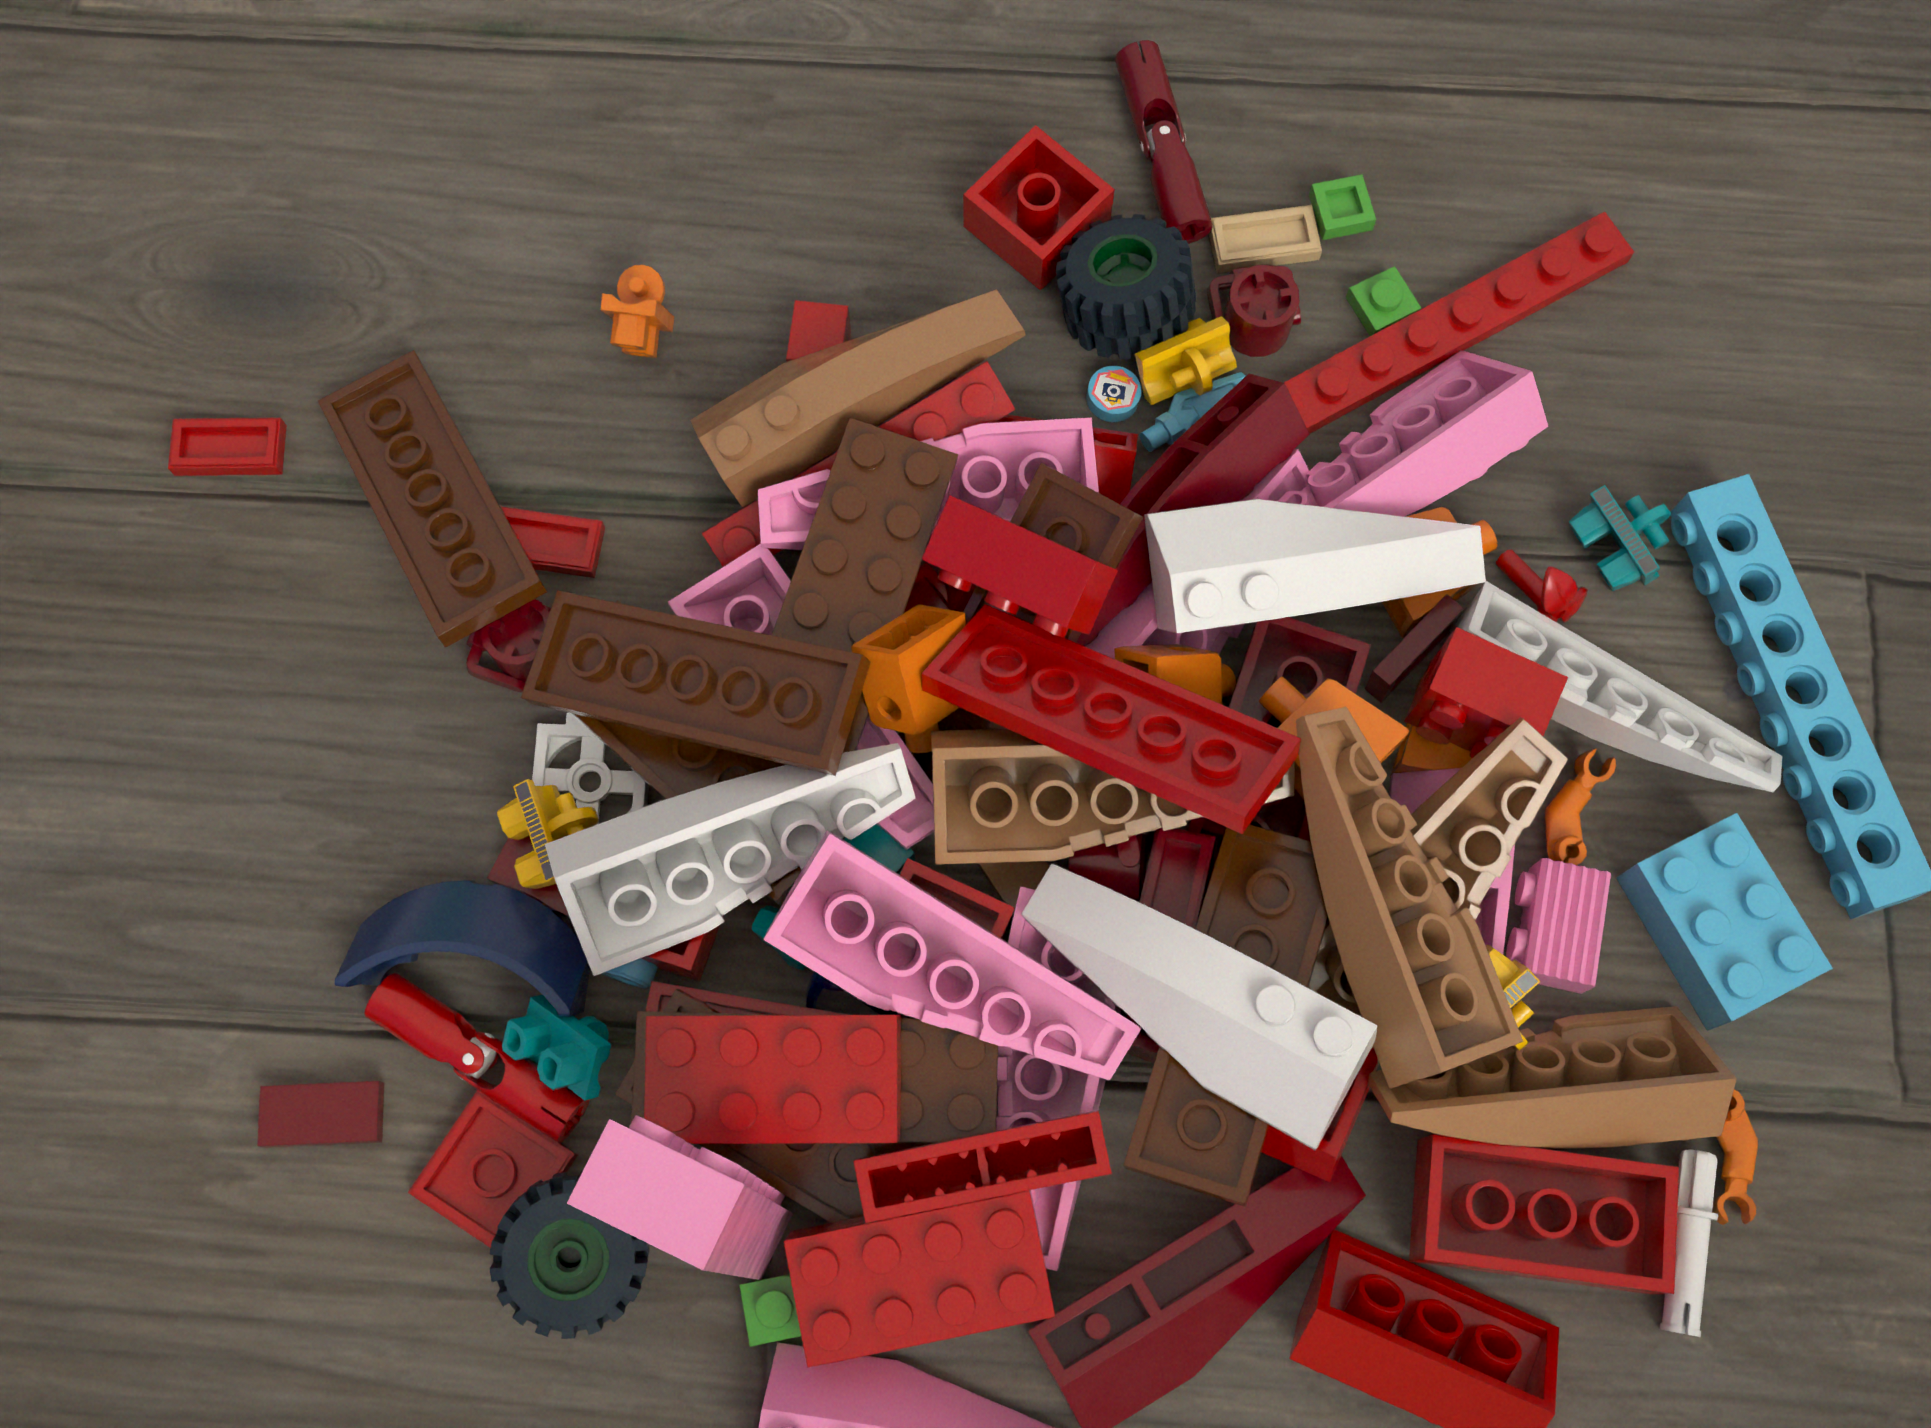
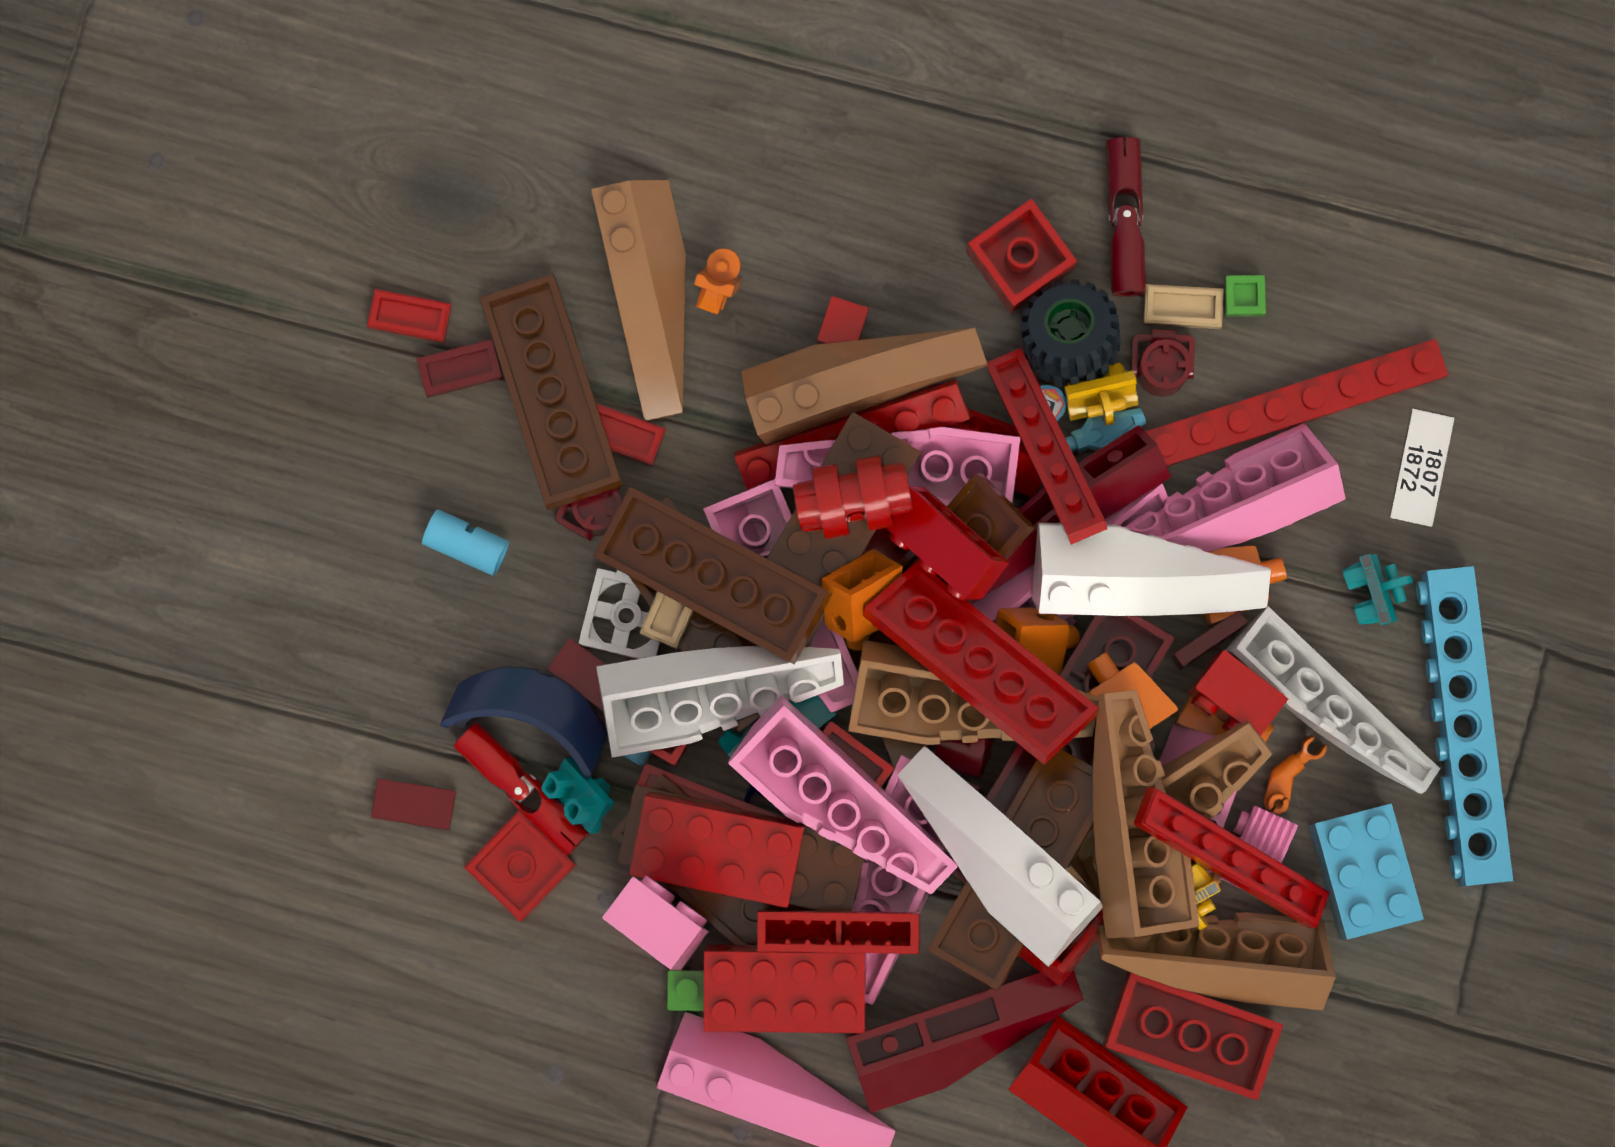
camera: 10 degrees right, 10 degrees up
(305, 500) = (459, 368): none -> dark red tile
(343, 726) = (461, 542): none -> medium azure pin
(545, 818) = (598, 645): yellow hips -> none
(547, 344) = (649, 286): none -> medium nougat wedge
(563, 1263) = (564, 929): black wheel -> none
(643, 766) = (666, 621): none -> tan tile
(892, 510) = (869, 494): none -> red piece
(1135, 426) = (1046, 446): none -> red plate
(1178, 874) = (1004, 773): dark red tile -> none
(1382, 300) = (1256, 374): bright green plate -> none
(1536, 930) = (1231, 857): none -> red tile
(1553, 596) = (1314, 622): red plant -> none
(1631, 378) = (1422, 467): none -> white sticker
(1694, 1216) = (1285, 1071): white axle -> none
(1739, 1160) = (1337, 1018): orange arm -> none

